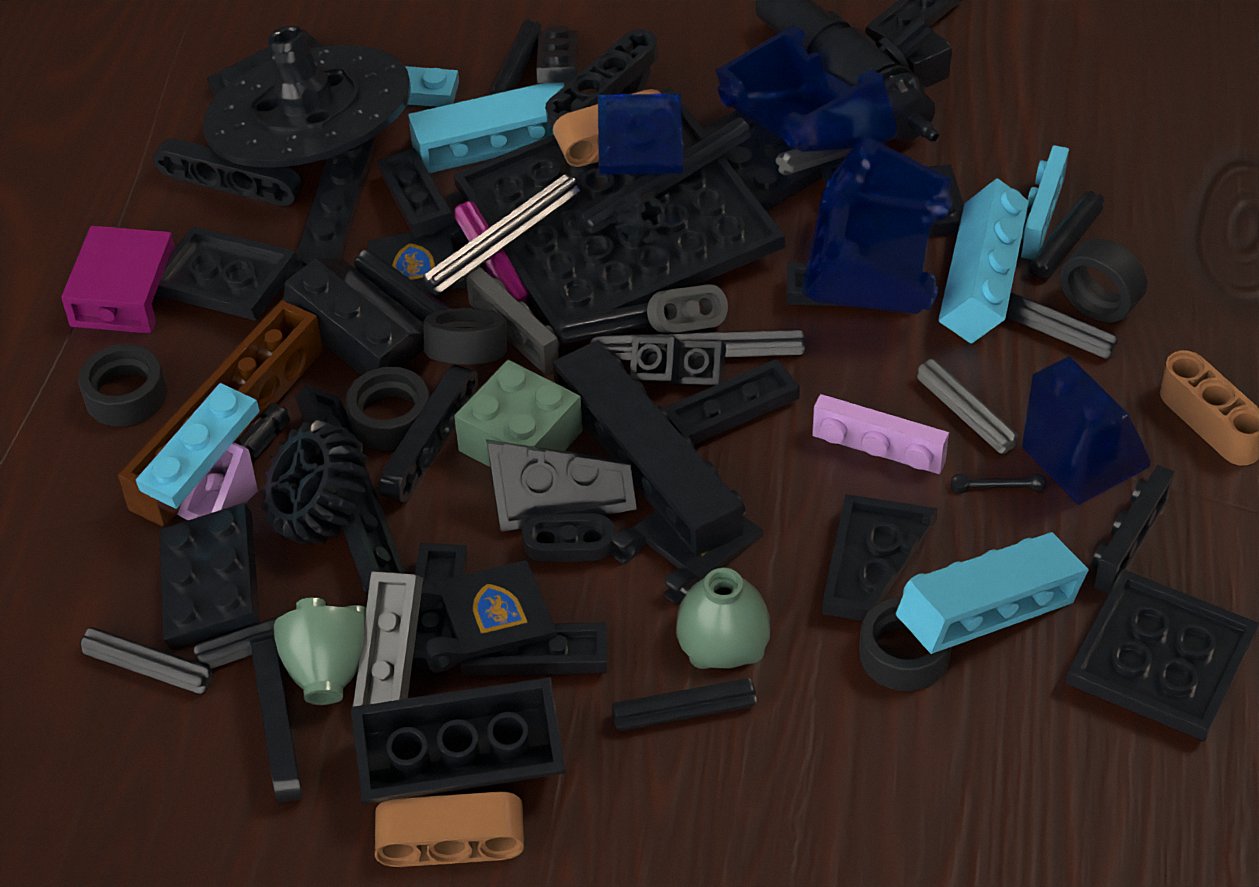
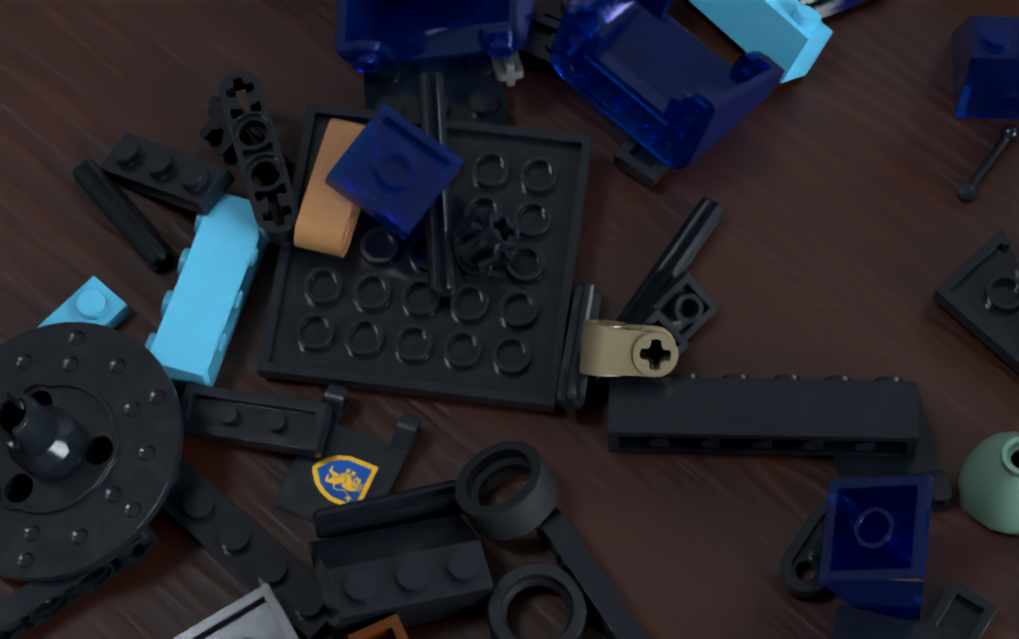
camera: 55 degrees left, 15 degrees up
(499, 265) = (400, 400): magenta axle -> none
(500, 235) = (404, 377): axle -> none
(518, 410) = (651, 508): sand green brick -> none
(523, 329) = (462, 437): dark grey plate -> none
(552, 481) = (759, 524): black wing -> none
(580, 544) = (877, 542): none -> clear blue slope
(623, 332) = (615, 349): none -> dark tan piece
(685, 310) = (613, 275): dark grey plate -> none
(733, 402) = (751, 309): black plate -> none
(880, 434) = (880, 218): lavender plate -> none
(967, 406) = (887, 127): dark grey axle -> none

